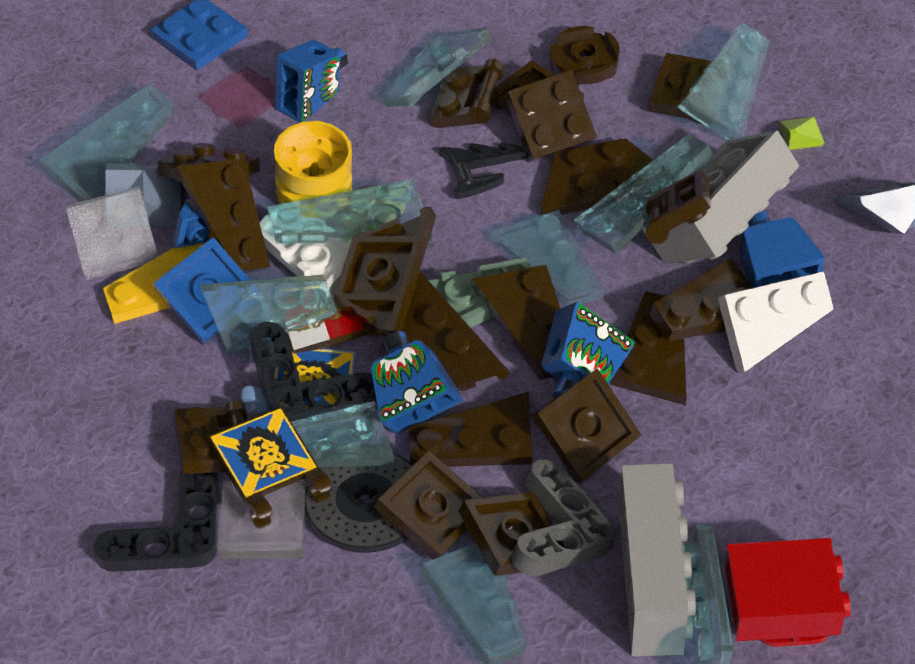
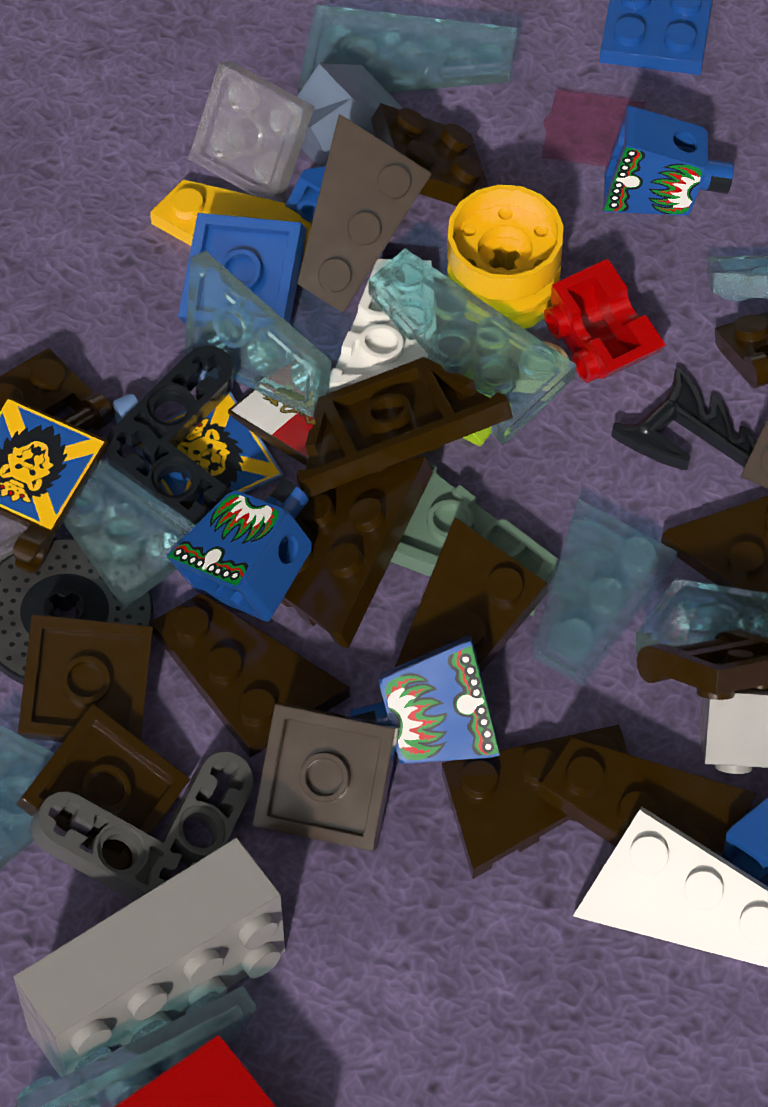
camera: 55 degrees right, 5 degrees up
(388, 160) = (599, 323): none -> red cylinder

